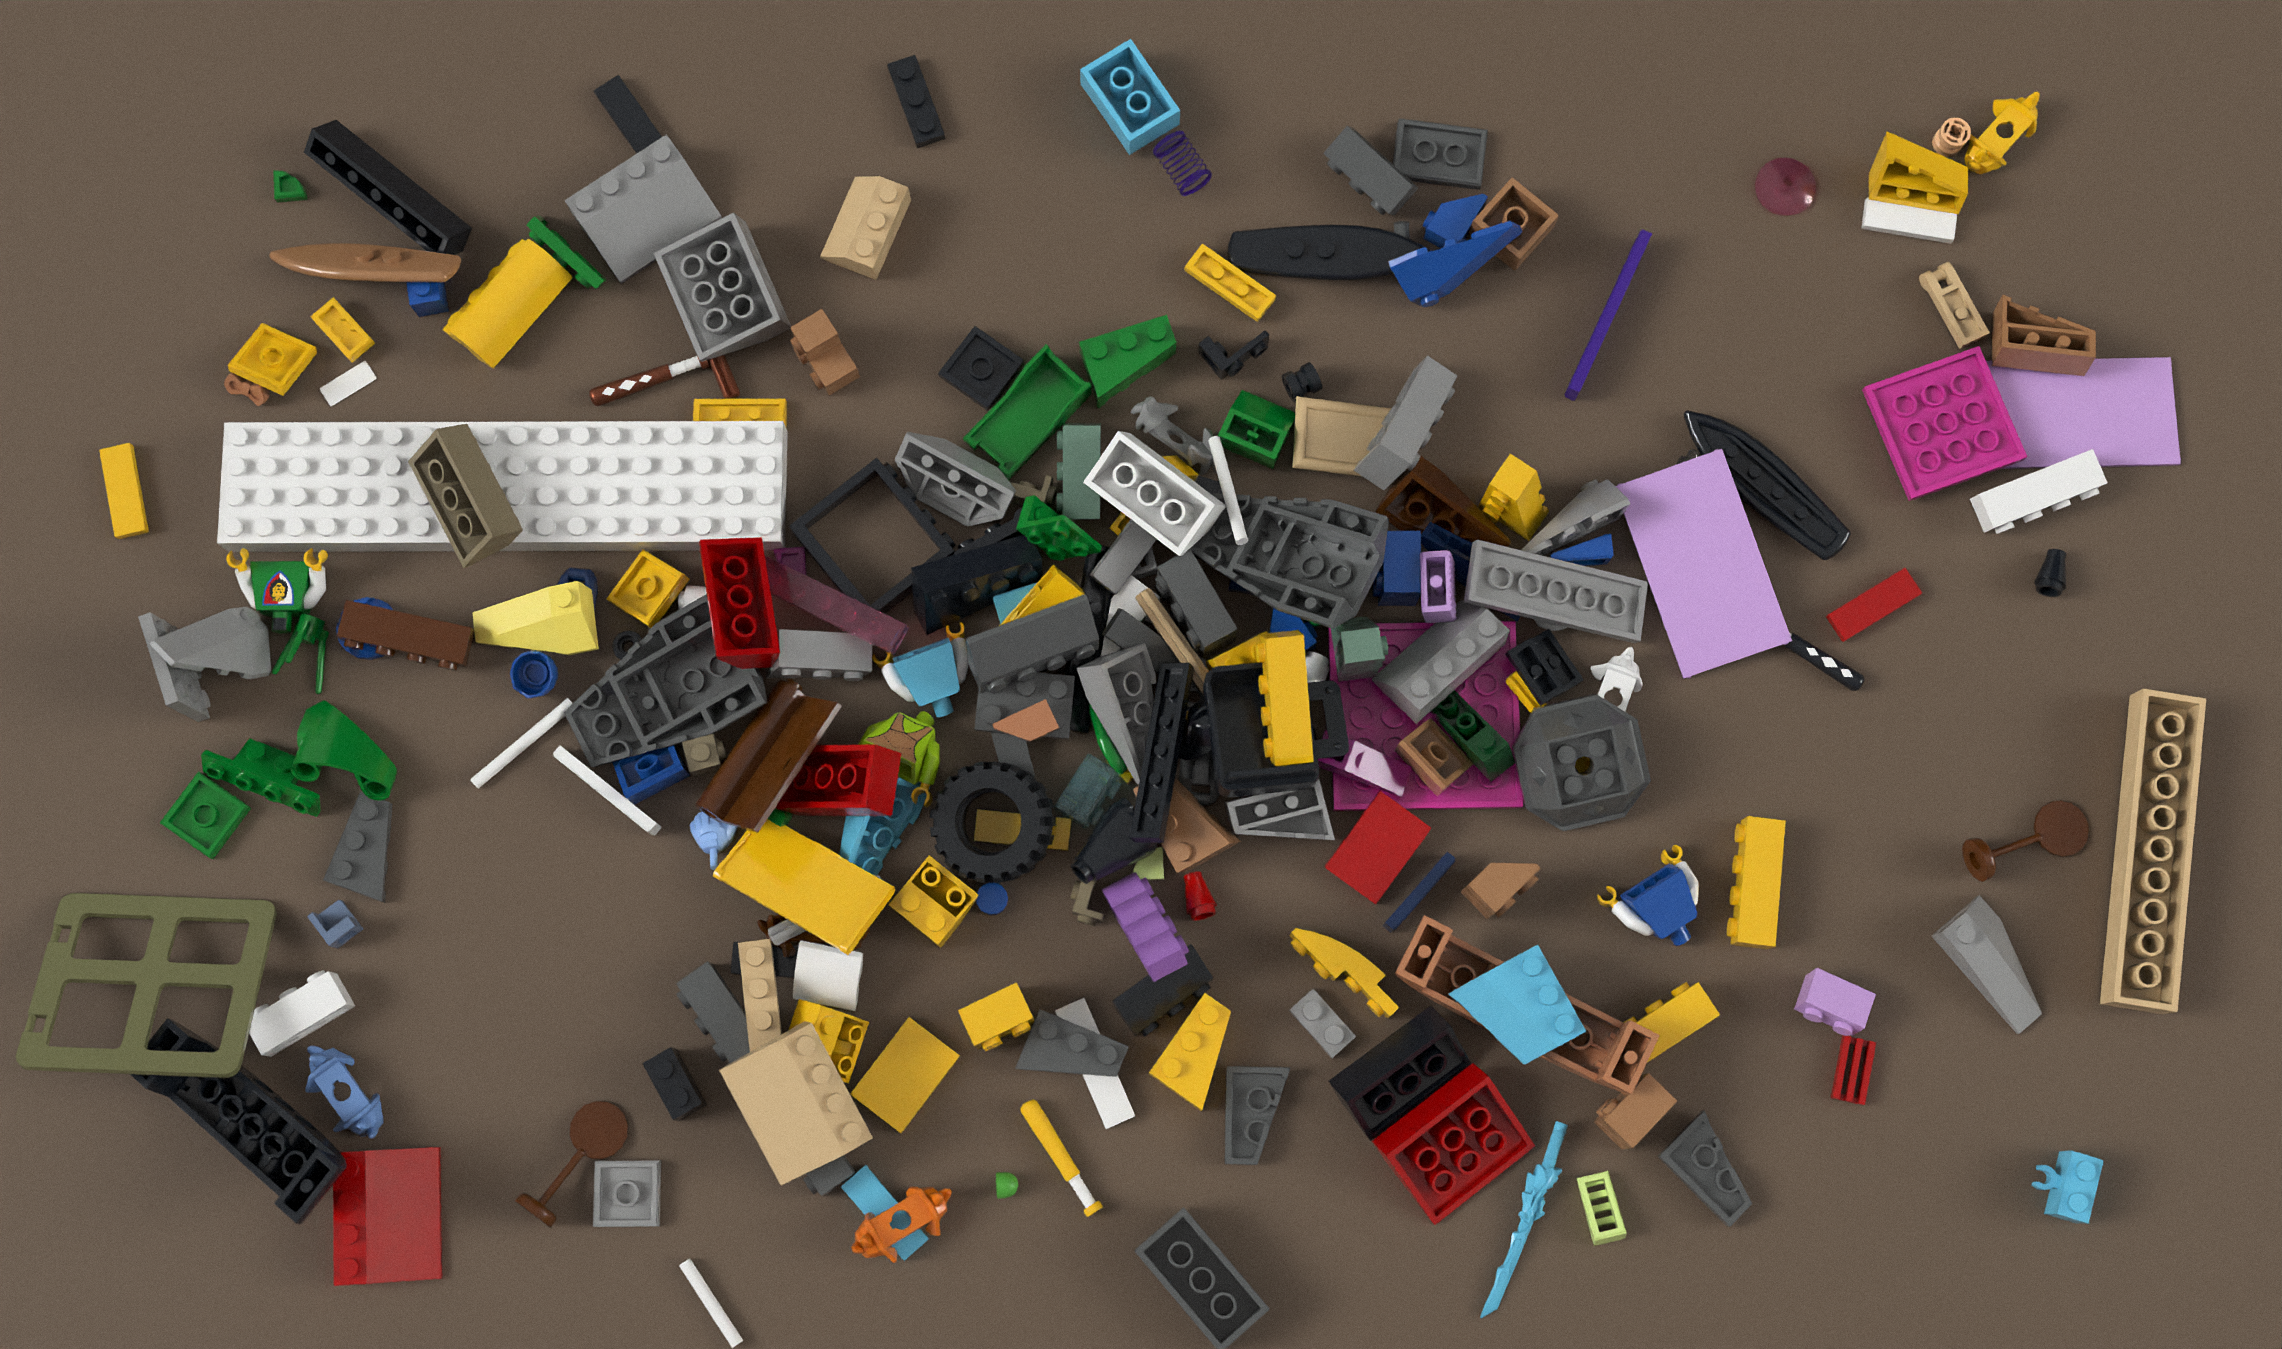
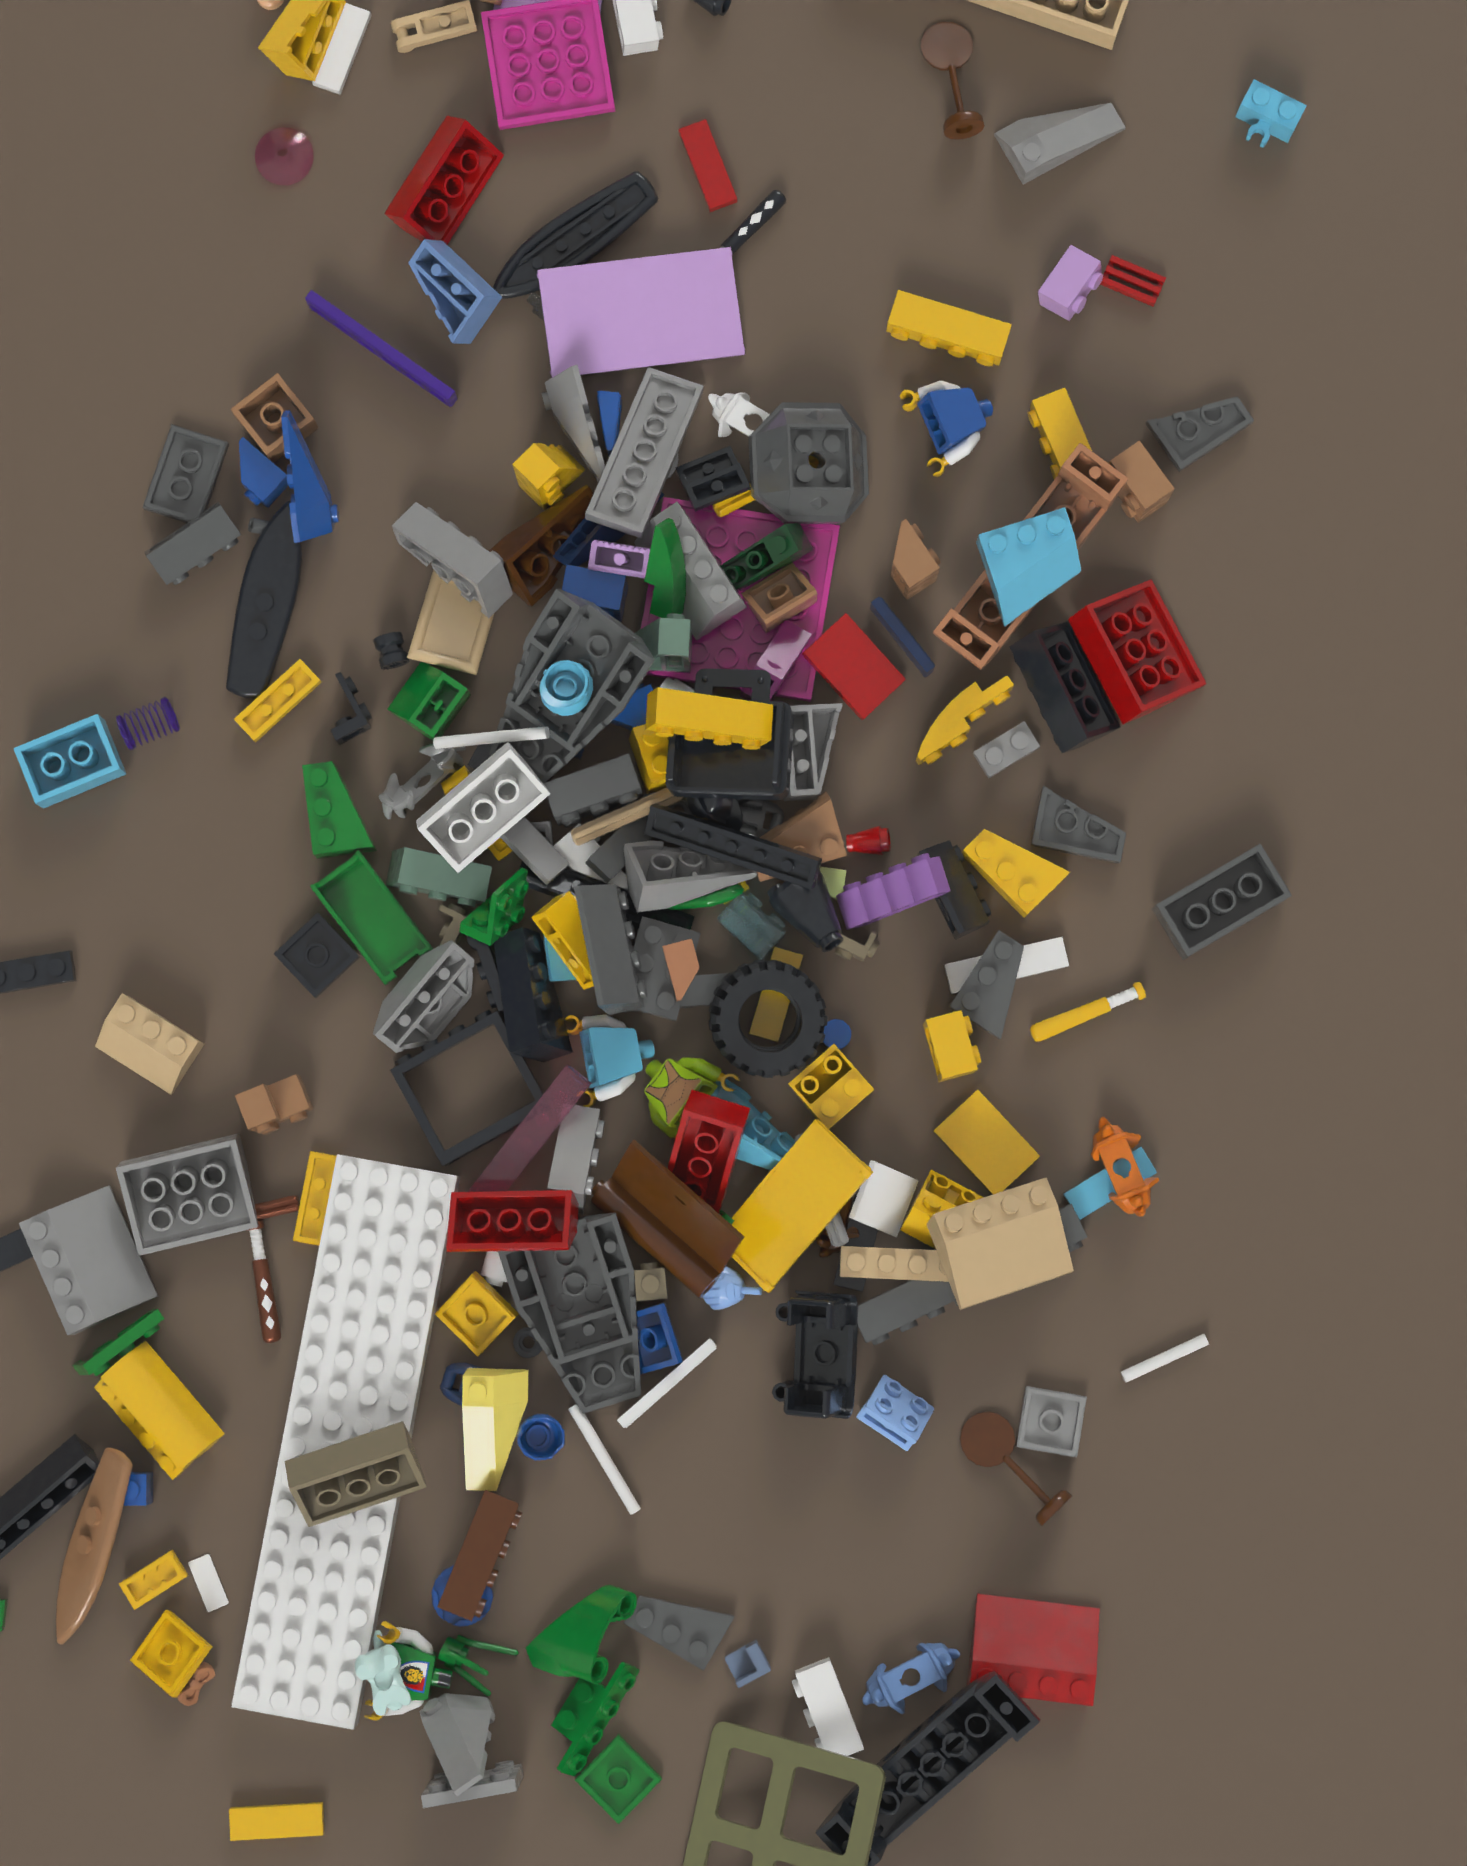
camera: 75 degrees left, 5 degrees up
(276, 558) = (382, 1671): none -> light aqua animal
(612, 1029) = (896, 1413): none -> light blue bracket
(654, 943) = (823, 1355): none -> black container
(674, 1084) = (959, 1359): black brick -> none
(793, 558) = (471, 1170): magenta tile -> none
(1005, 1184) = (1104, 1067): bright green hinge -> none
(1290, 550) = (566, 687): none -> medium azure piece
(1433, 631) = (666, 570): none -> green slope
(1532, 1209) = (1201, 591): medium azure sword -> none
(1616, 1218) = (1229, 541): yellowish green slope -> none
(1685, 373) = (455, 289): none -> medium blue wedge
(1793, 345) = (444, 181): none -> red slope

